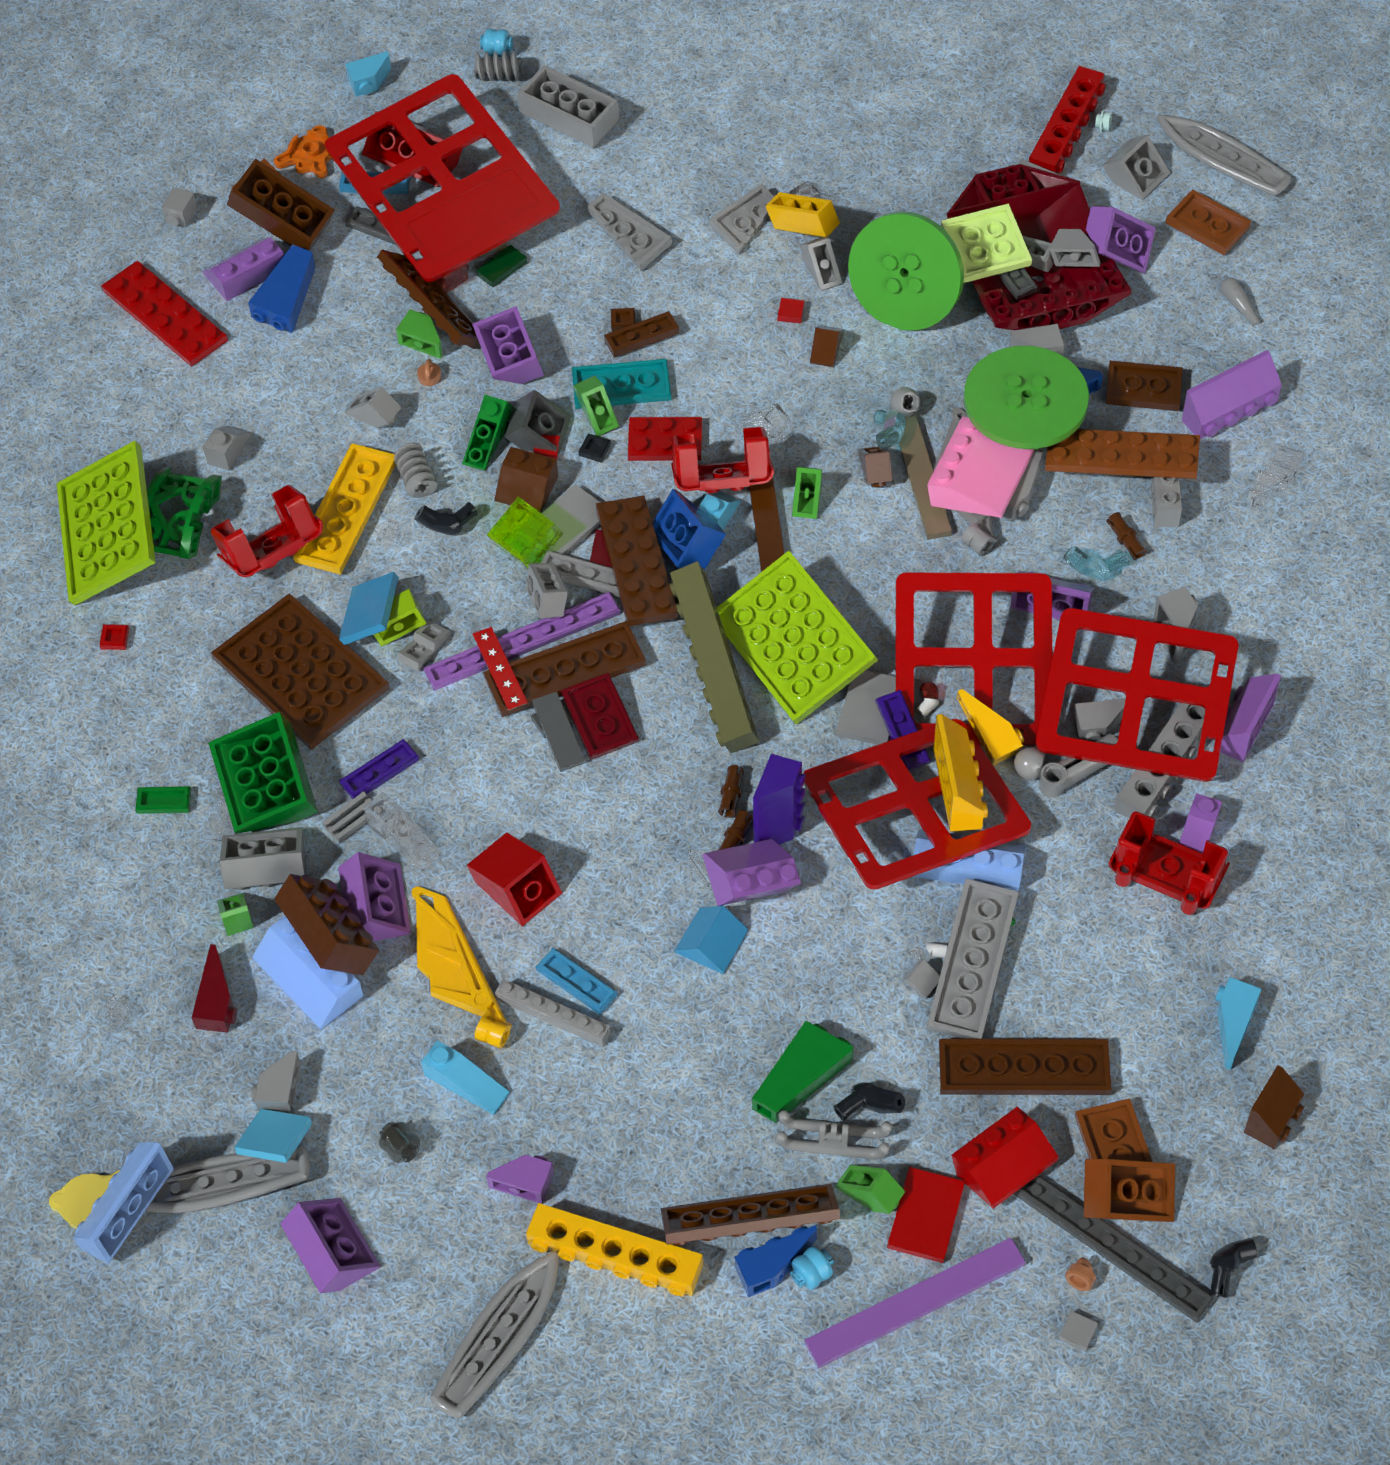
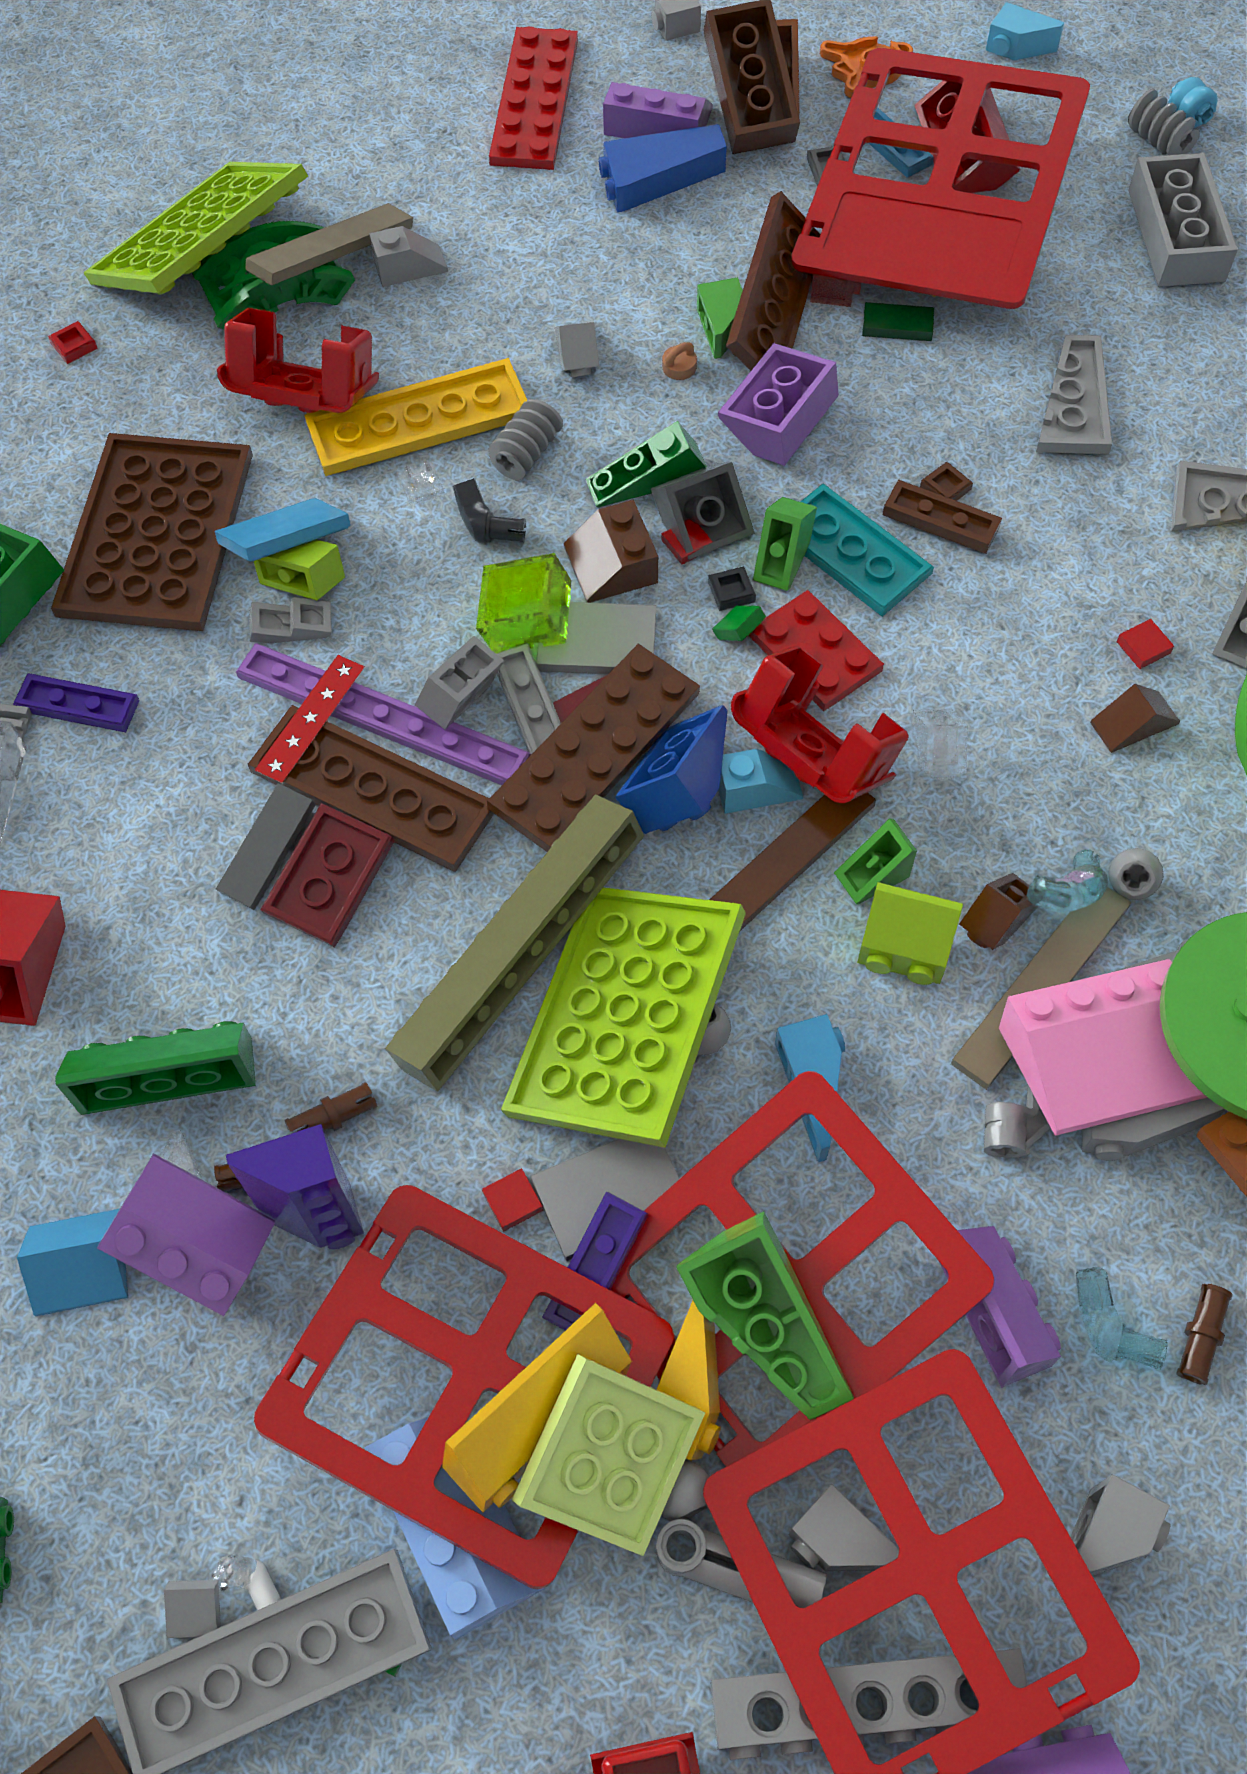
camera: 50 degrees right, 5 degrees up
(191, 468) = (324, 244): none -> dark tan tile
(620, 457) = (739, 623): none -> green tile
(644, 843) = (158, 1068): none -> green slope
(839, 745) = (512, 1199): none -> red tile
(856, 504) = (909, 934): none -> lime slope
(878, 587) = (816, 1048): none -> dark azure slope
(931, 699) = (665, 1266): arm -> none
(982, 668) = (758, 1302): none -> bright green wedge
(1000, 762) = (608, 1456): none -> yellowish green plate

